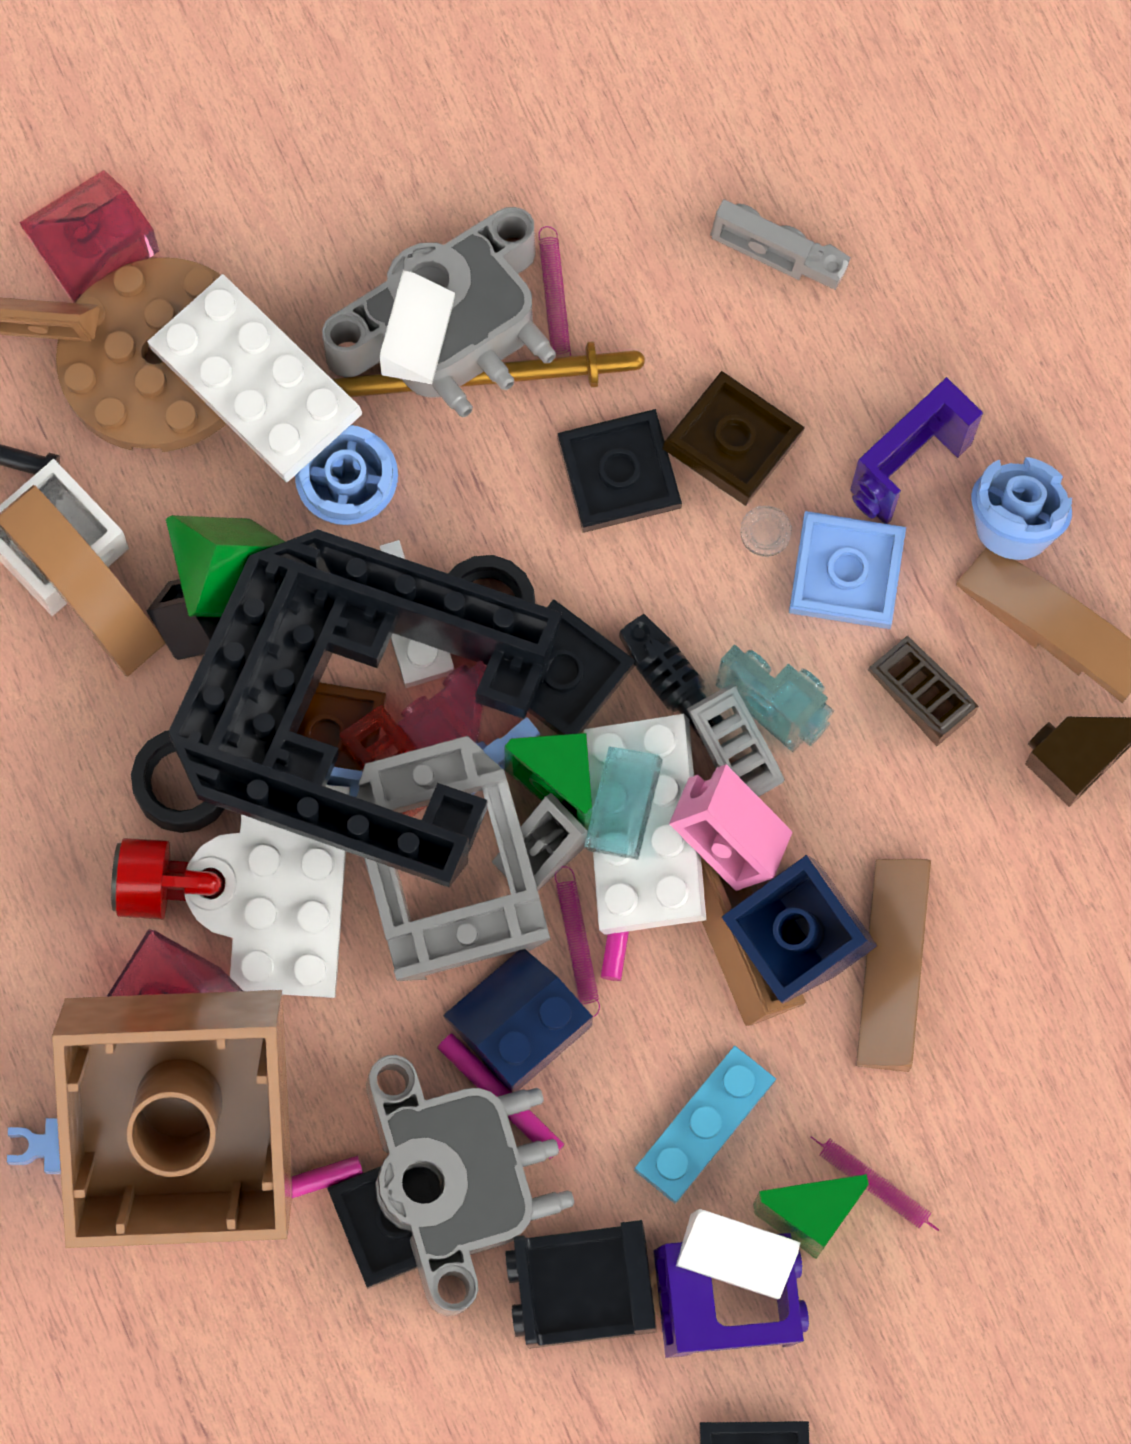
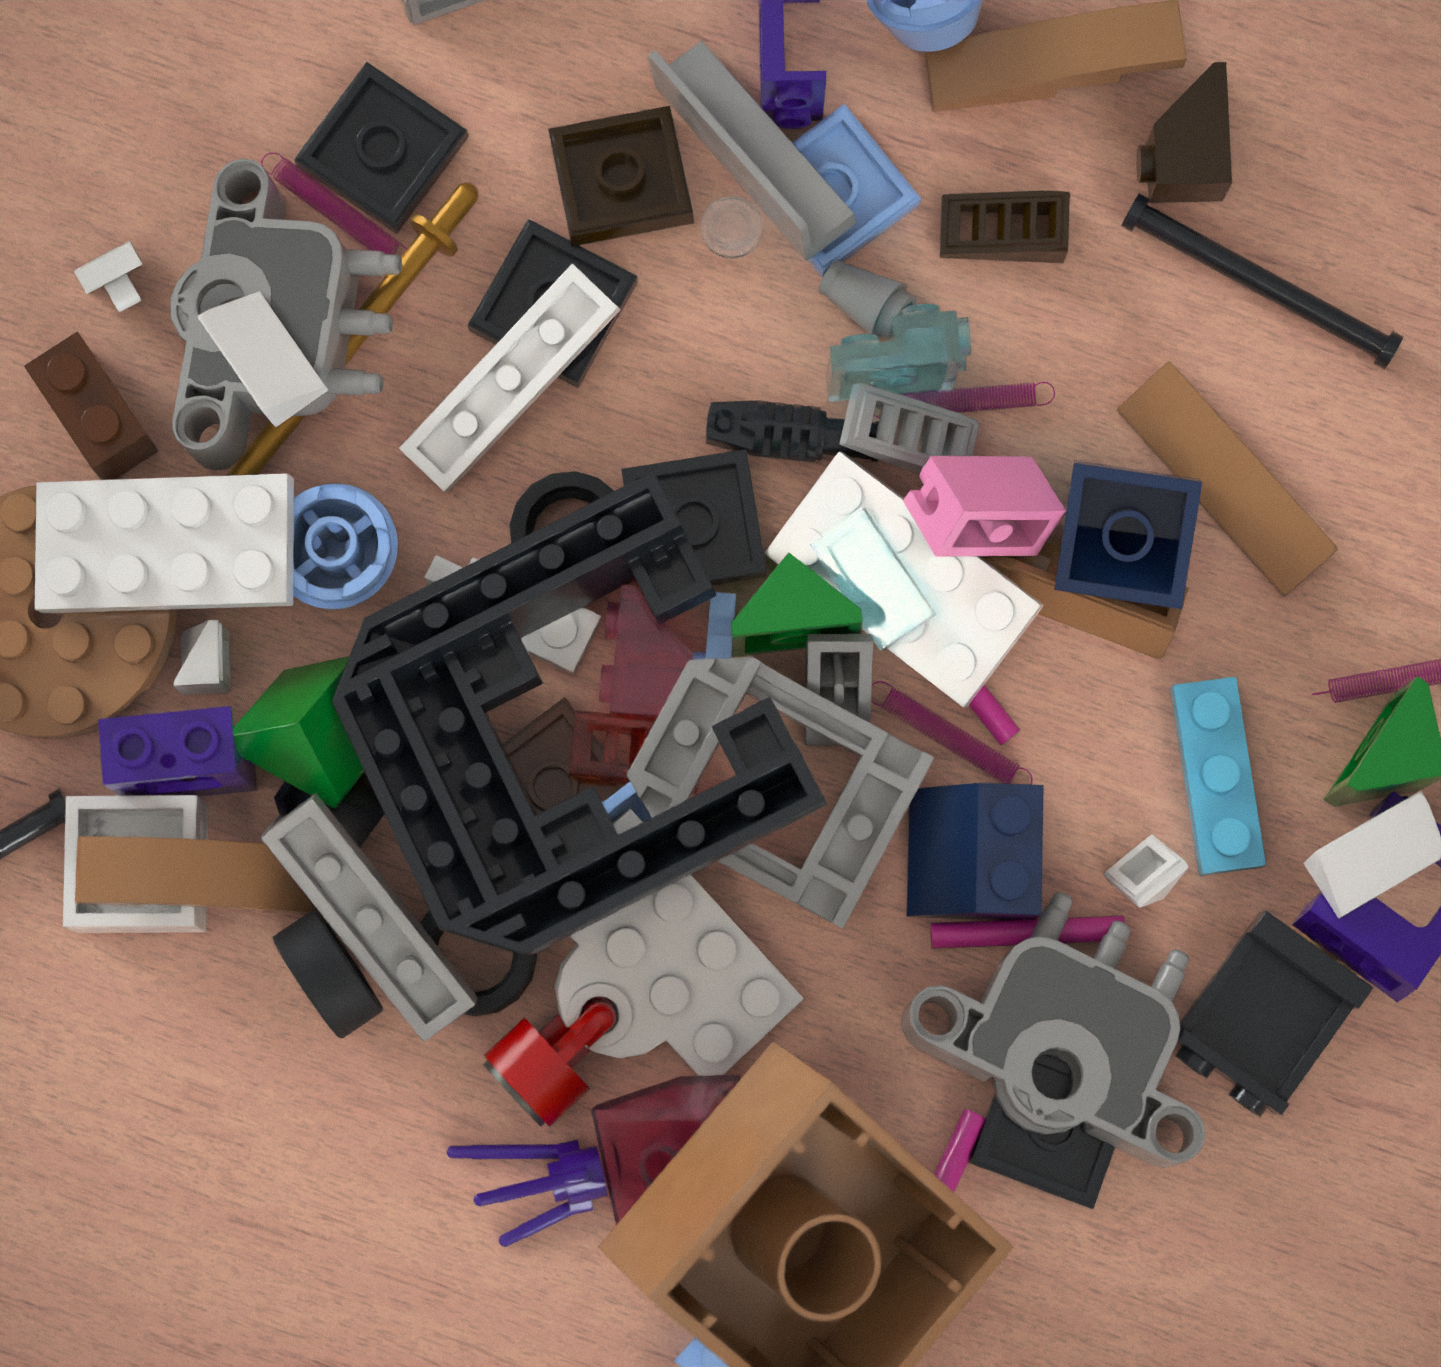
camera: 45 degrees left, 5 degrees up
(88, 704) = (327, 974): none -> black tyre
(101, 959) = (574, 1177): none -> dark purple plant
(133, 490) = (161, 749): none -> dark purple window
(141, 694) = (369, 917): none -> light grey panel
(212, 469) = (205, 660): none -> white slope
(299, 266) = (91, 408): none -> reddish brown brick
(391, 206) = (112, 273): none -> white tile
(546, 485) = (509, 378): none -> white plate
(603, 1134) = (1147, 872): none -> white slope
(617, 287) = (381, 147): none -> black tile
(799, 644) = (865, 296): none -> light grey cone
(812, 769) = (1016, 393): none -> dark pink piece
(823, 499) = (752, 149): none -> light grey panel
(1039, 874) = (1262, 281): none -> black bar

